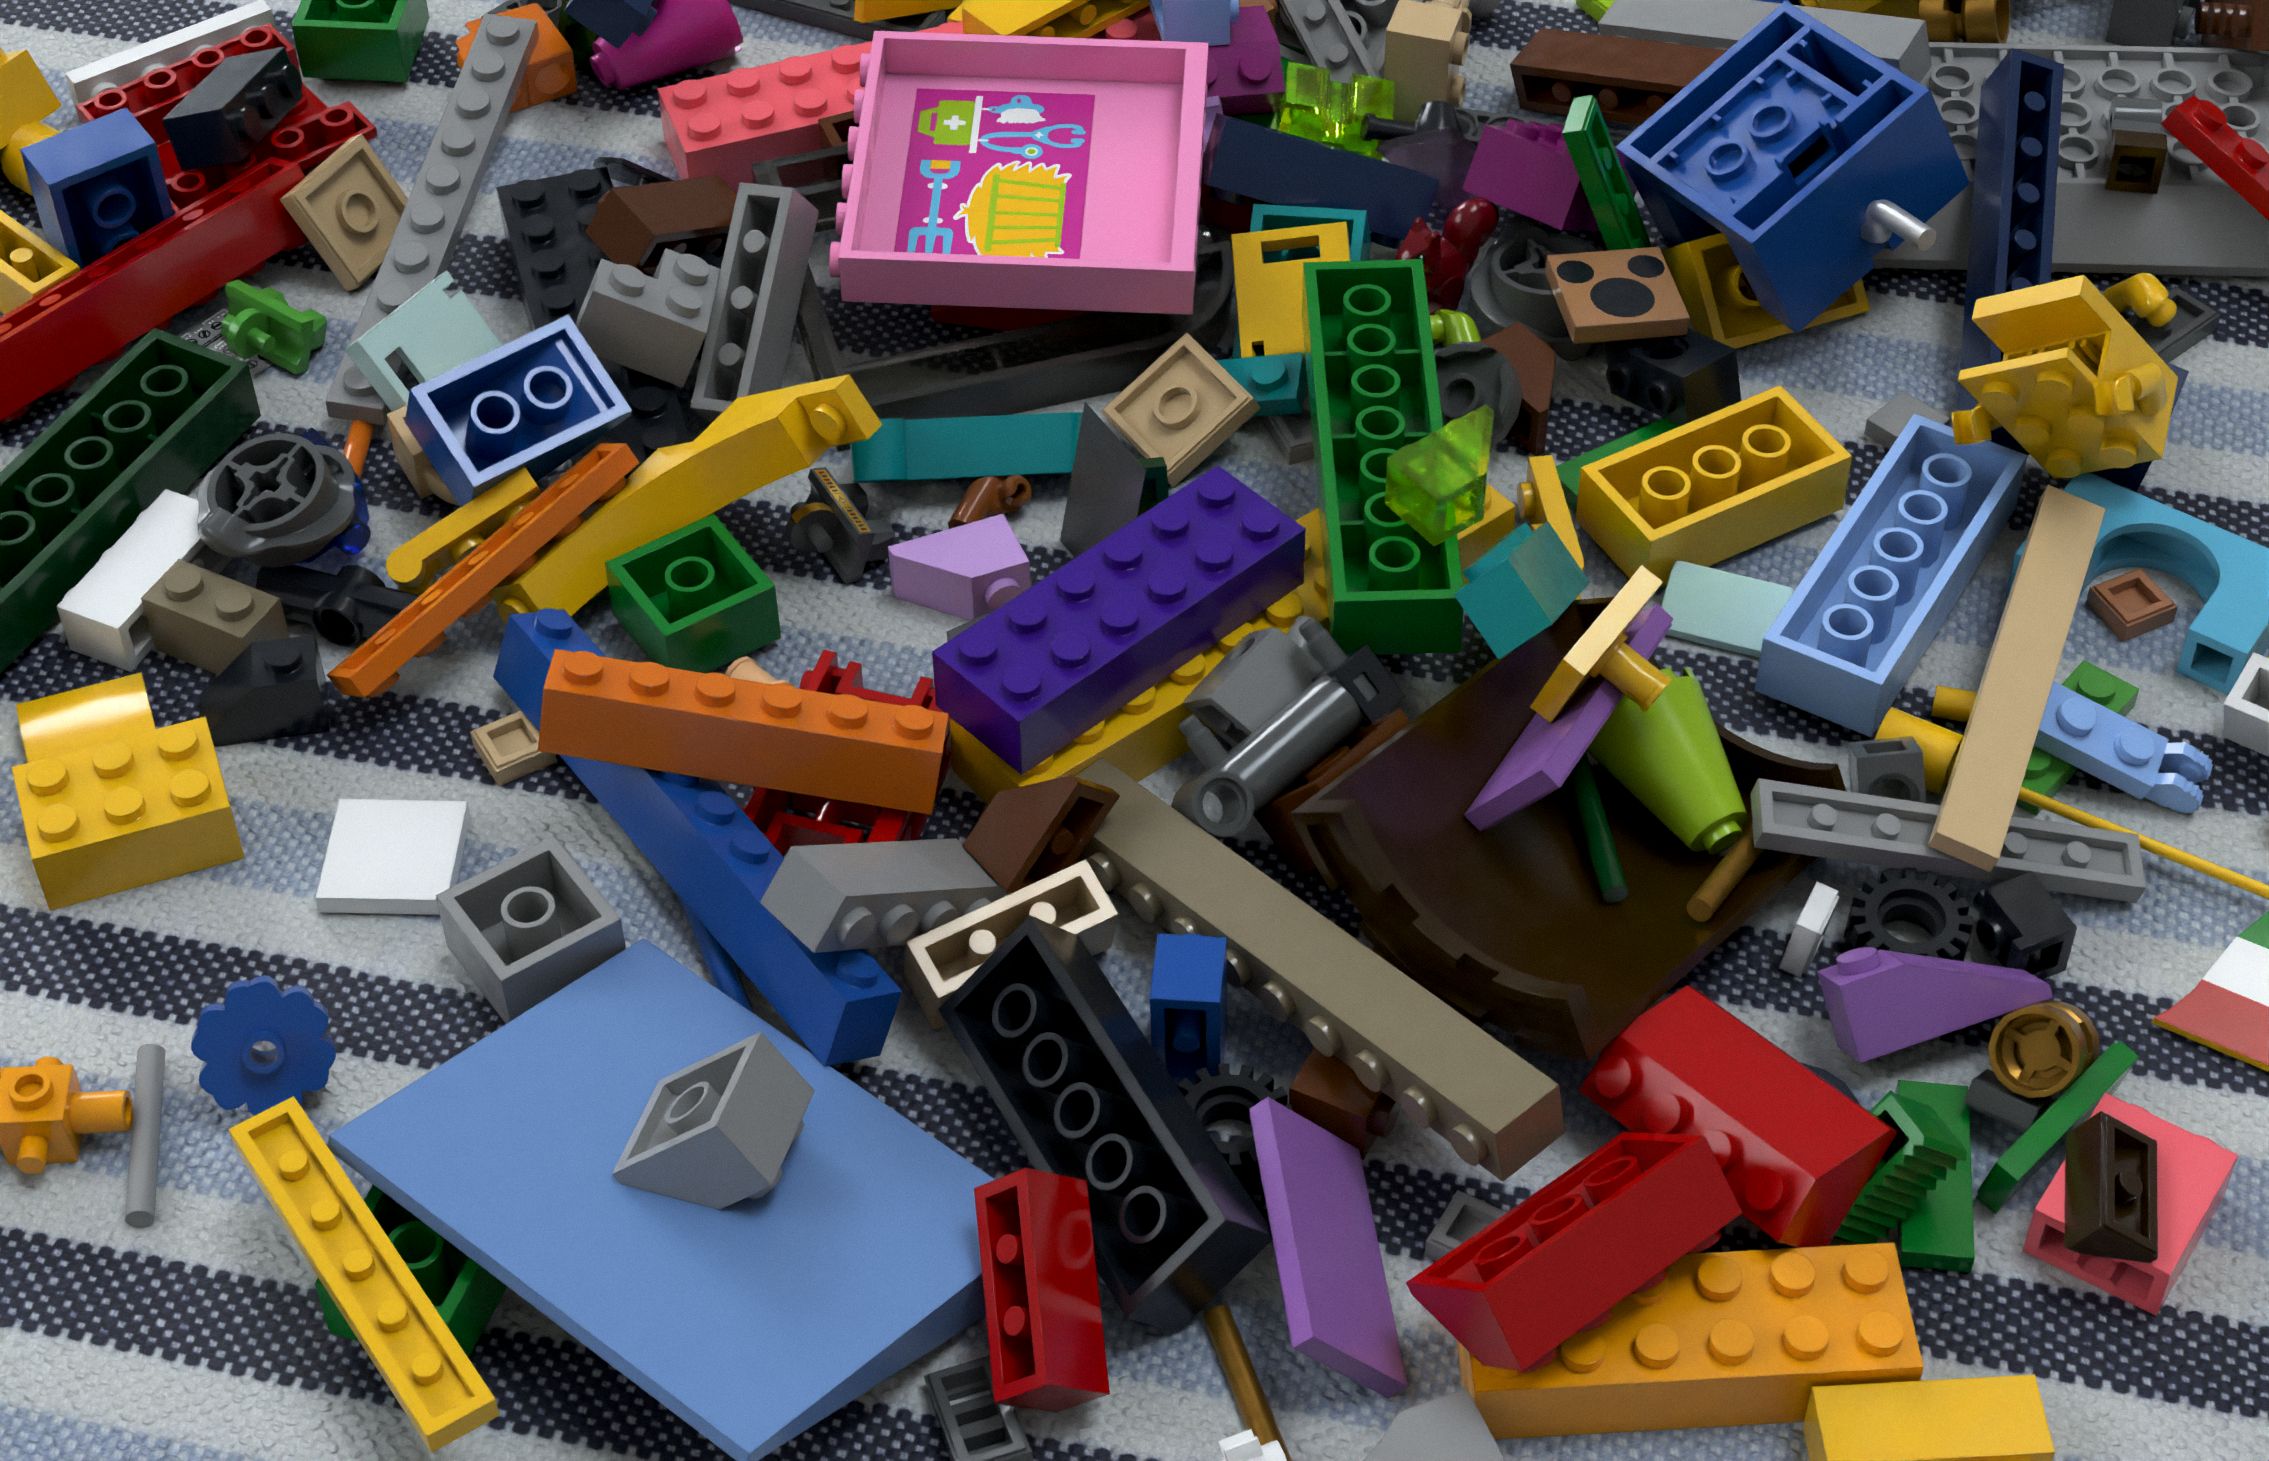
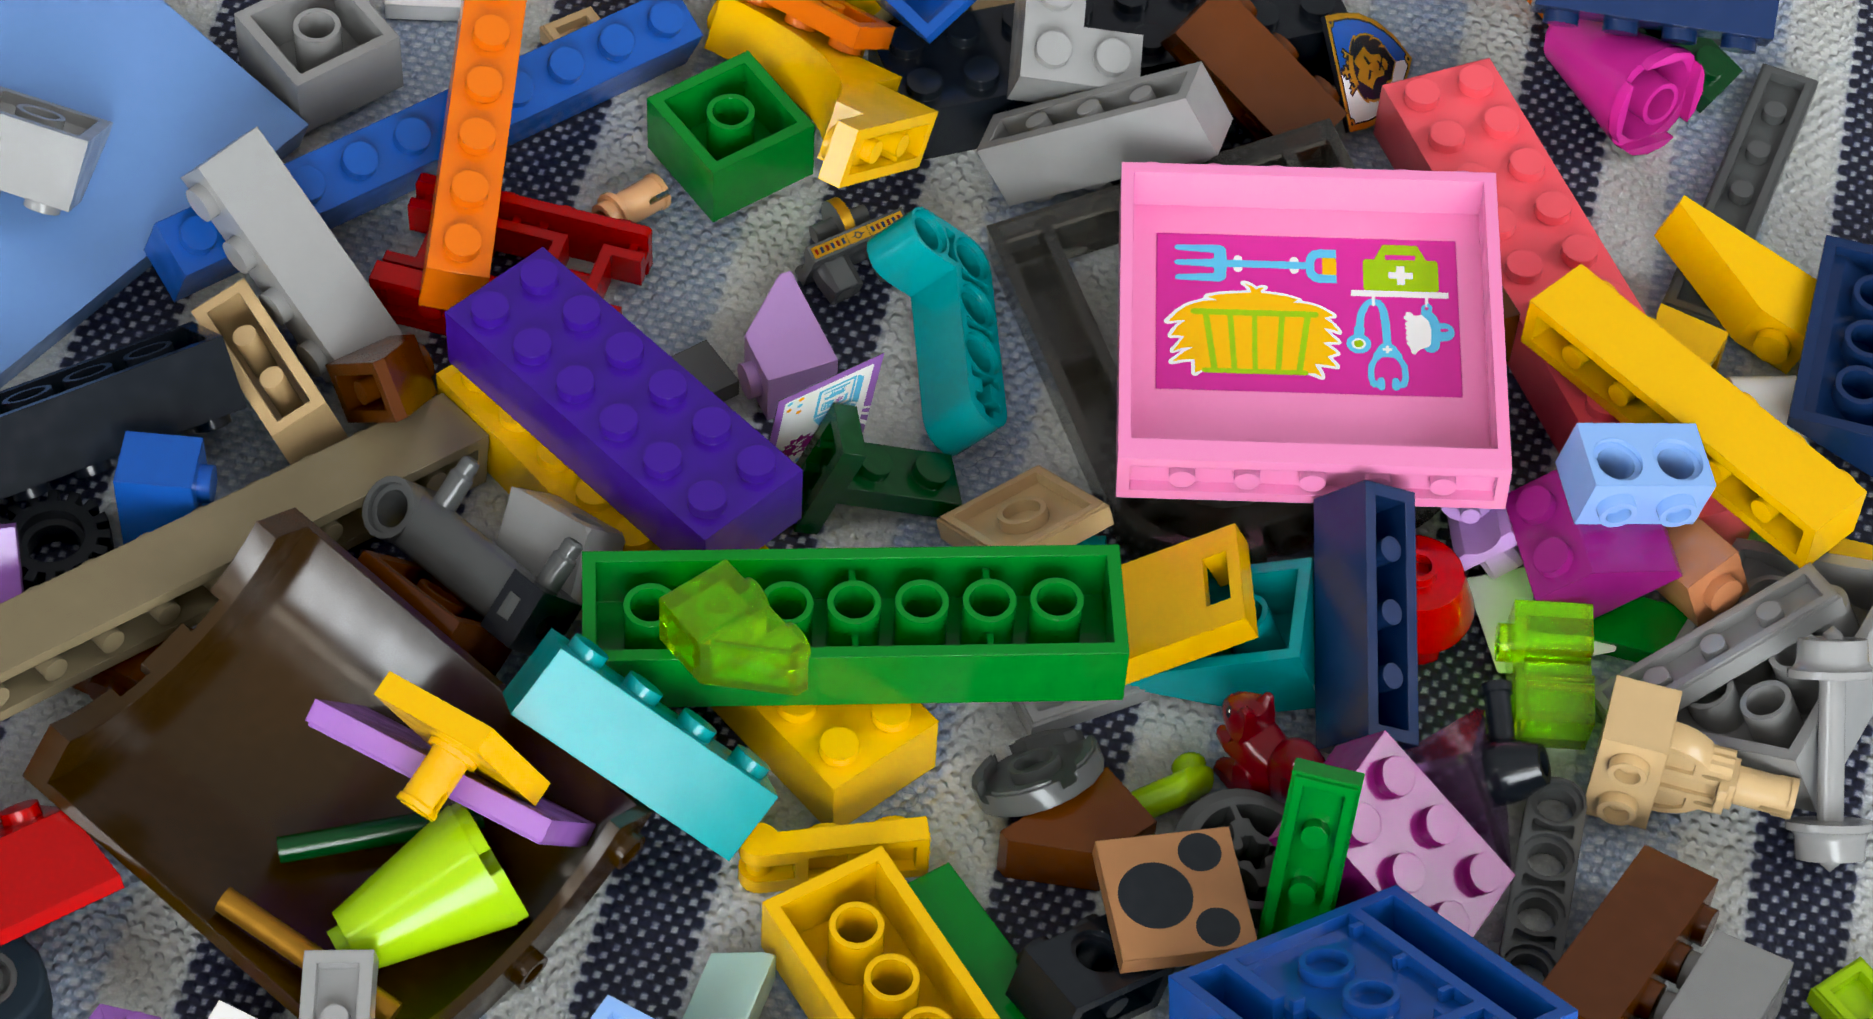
camera: 85 degrees right, 5 degrees up
(991, 497) = (900, 371): dark orange arm -> none

